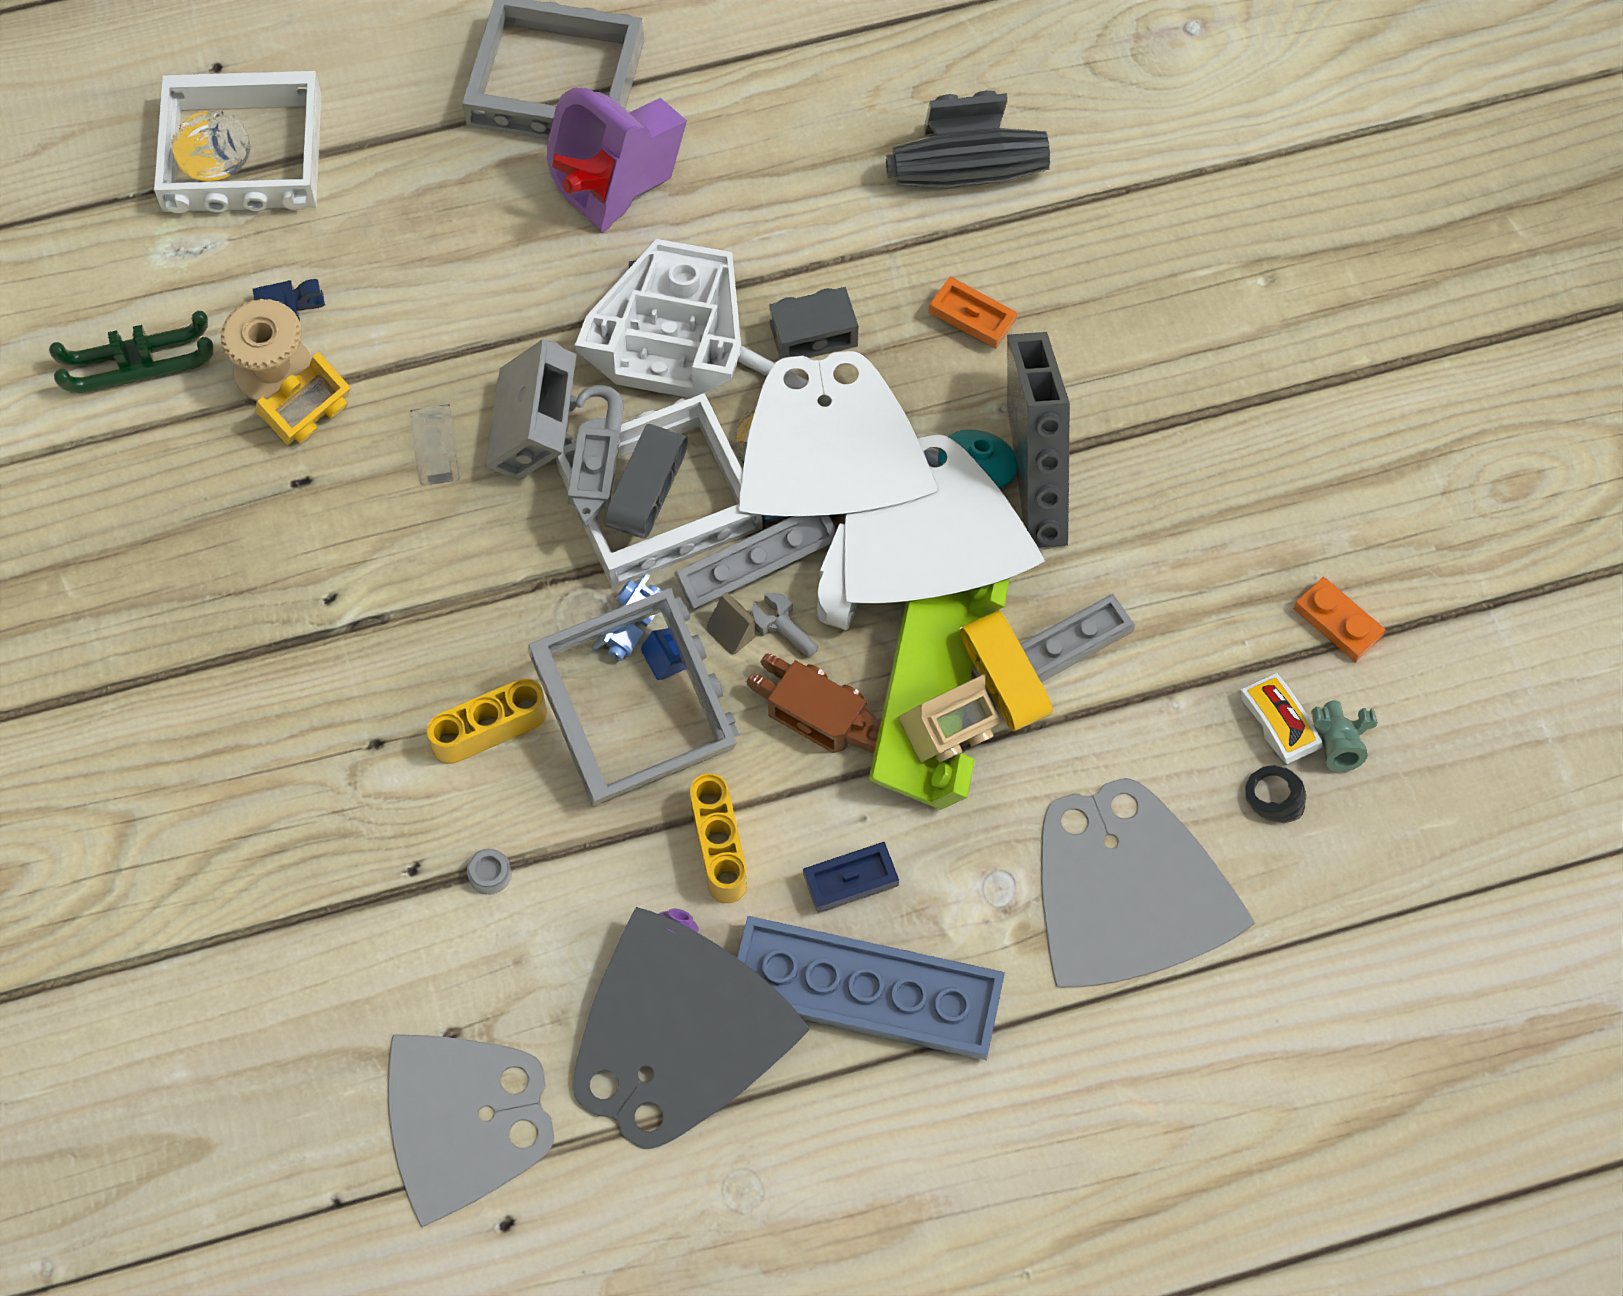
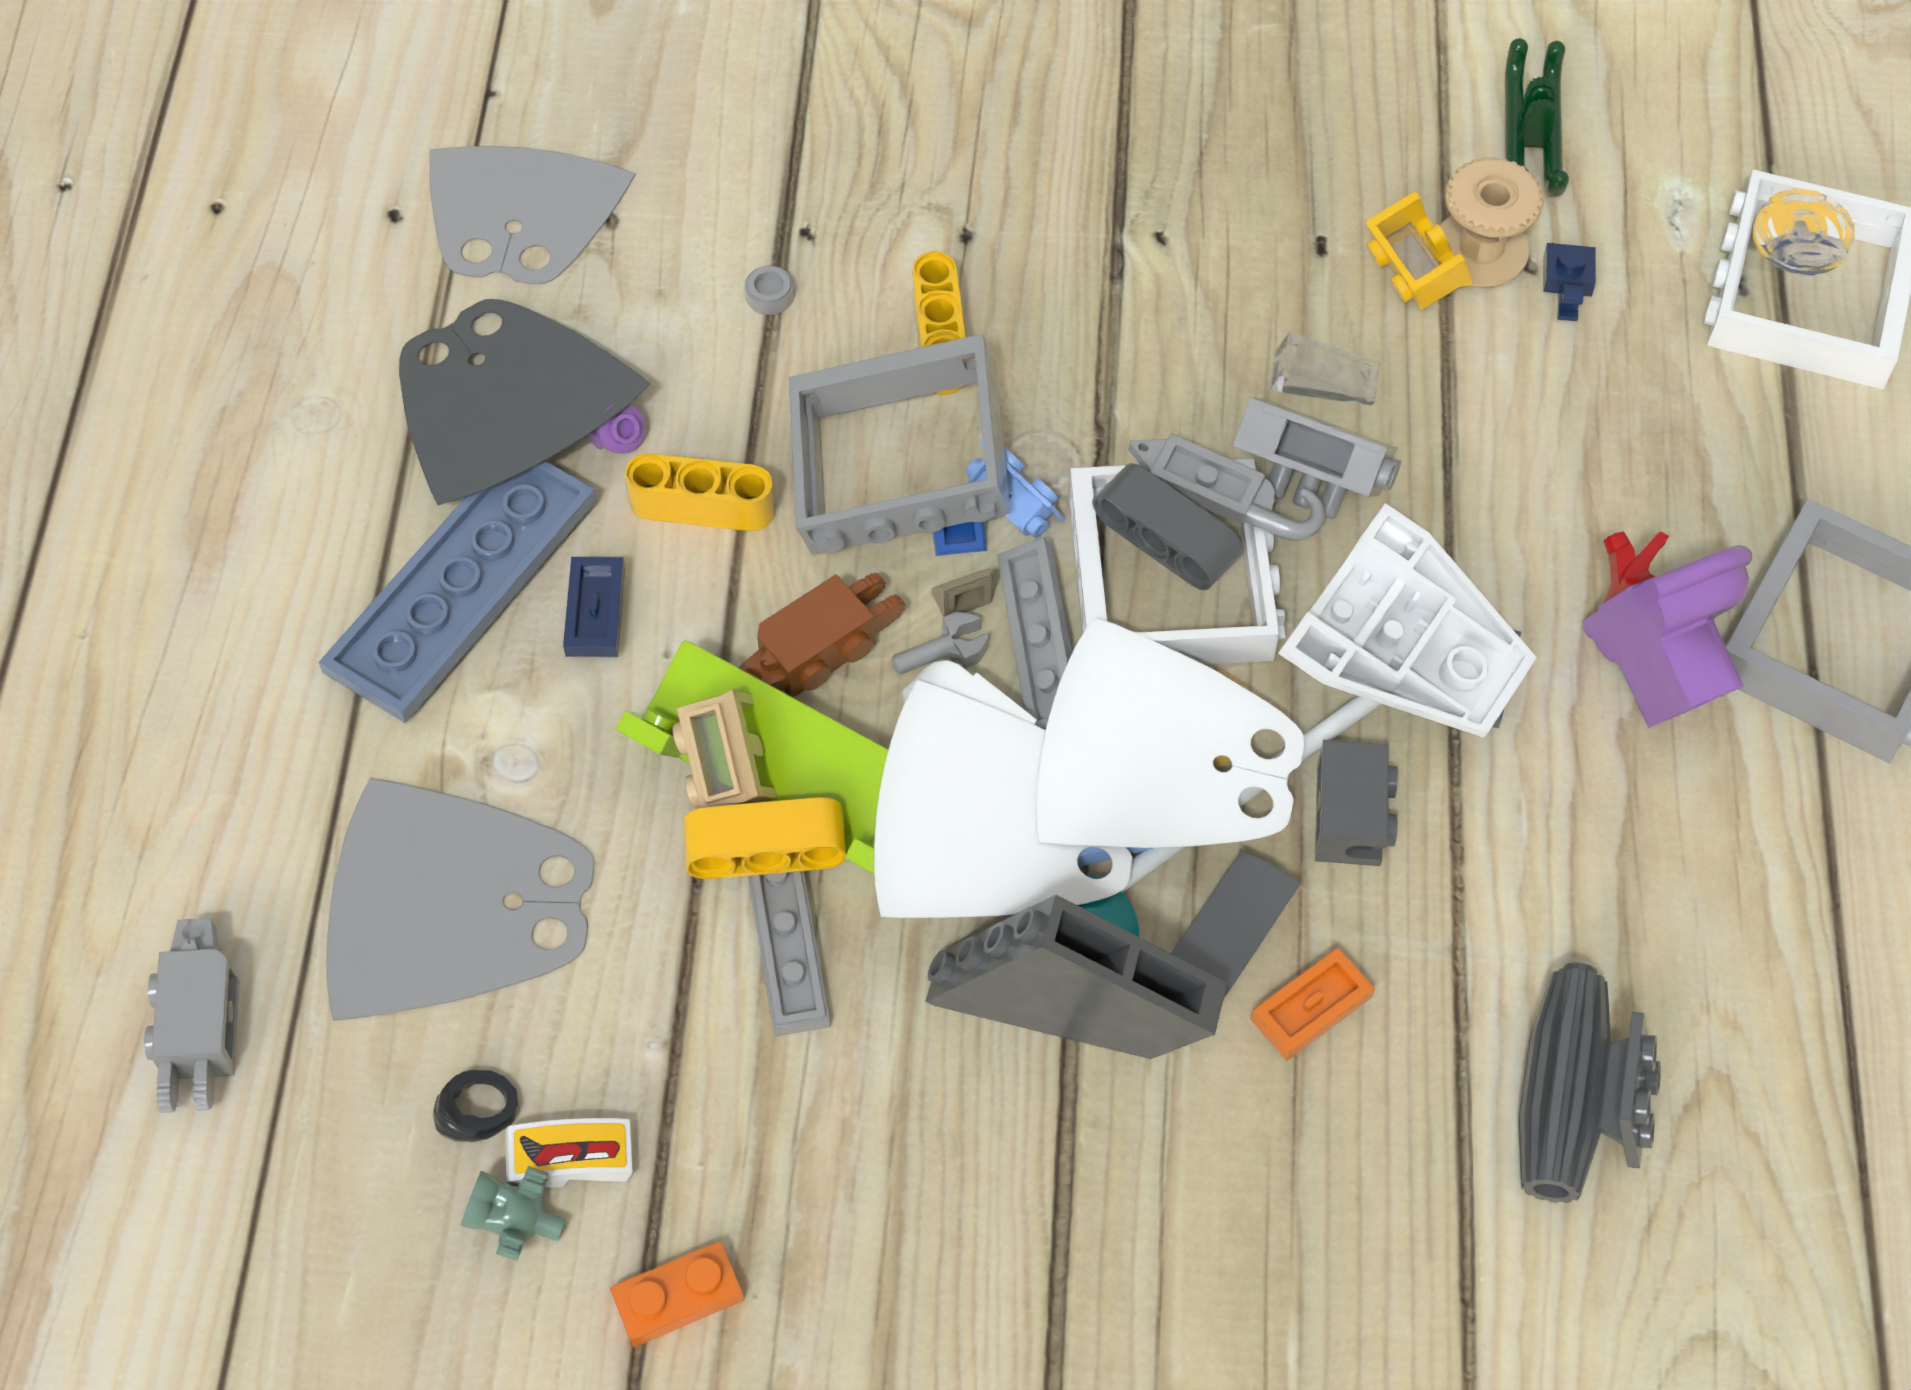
camera: 110 degrees right, 5 degrees down
(934, 371) = (1236, 917): none -> dark grey piece
(1302, 1008) = (193, 1015): none -> light grey hinge

